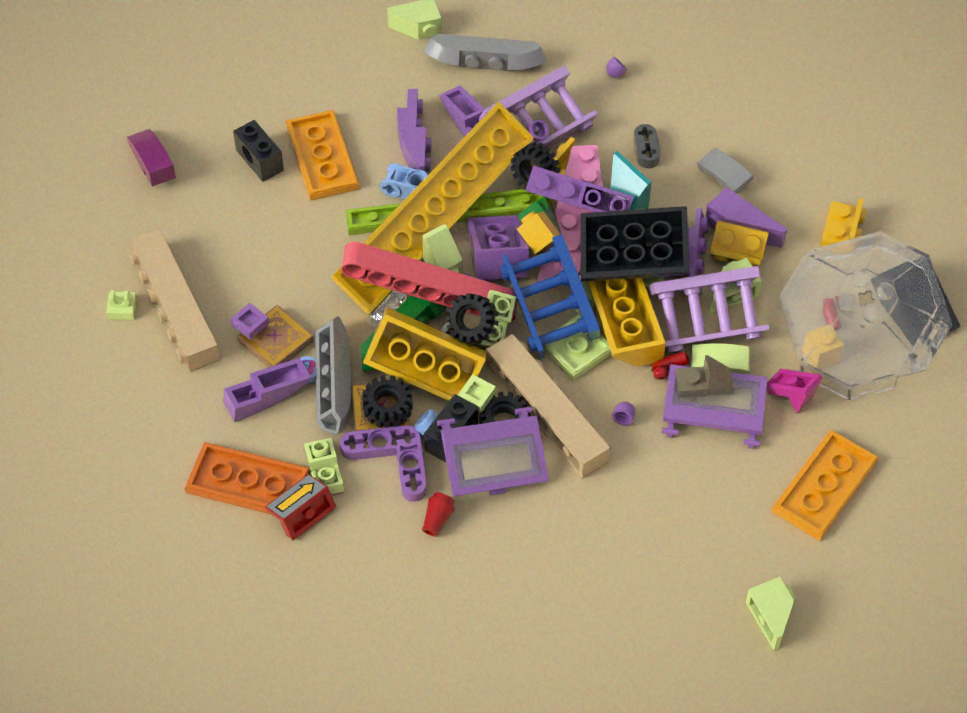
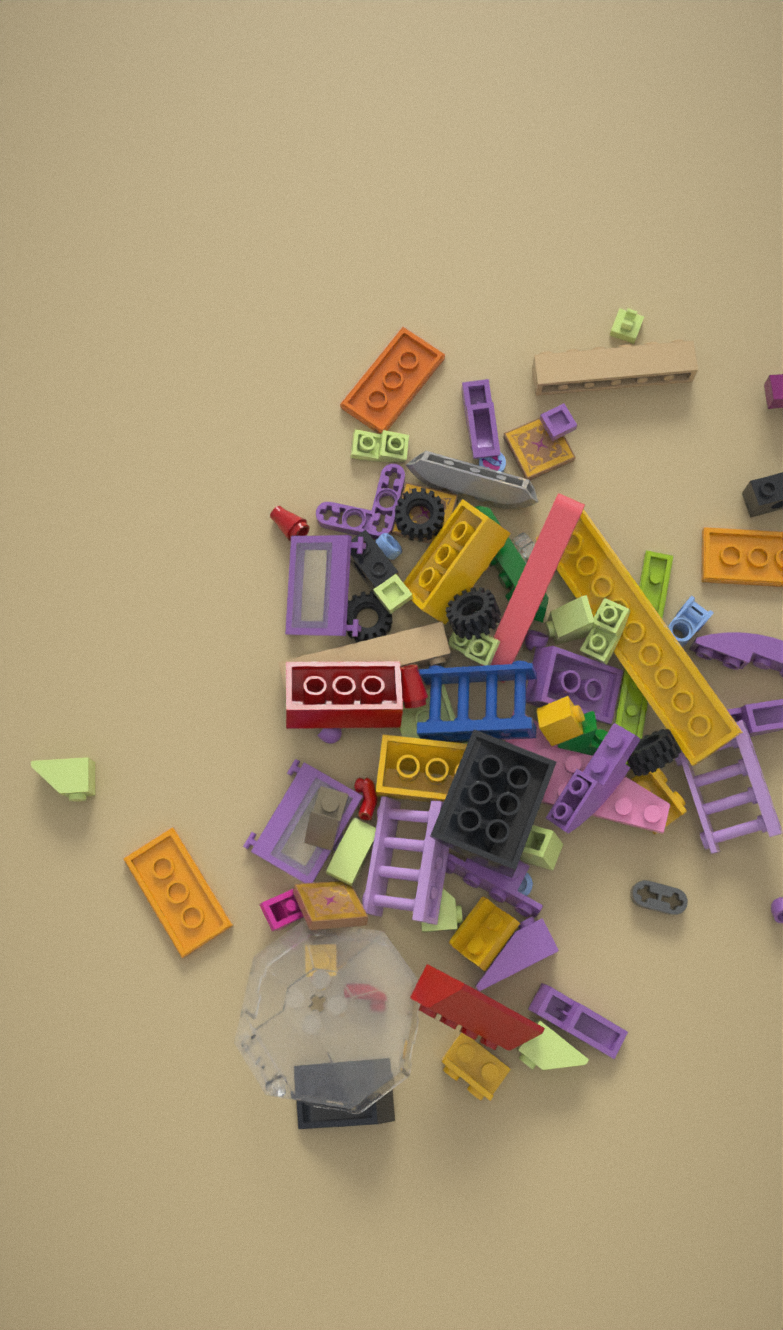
camera: 115 degrees right, 20 degrees up
(302, 506) = (343, 411): panel -> none
(430, 219) = (606, 631): none -> yellowish green slope
(541, 133) = (698, 777): medium lavender hinge -> none
(560, 351) = (413, 689): none -> red cone
(590, 397) = (343, 695): none -> red slope
(630, 181) = (591, 838): slope -> none
(726, 170) = (591, 967): light grey slope -> none
(770, 170) = (578, 1020): none -> medium lavender slope
(777, 348) = (330, 905): none -> medium nougat tile
(804, 180) = (550, 1051): none -> yellowish green slope
(805, 216) = (472, 1010): none -> red slope

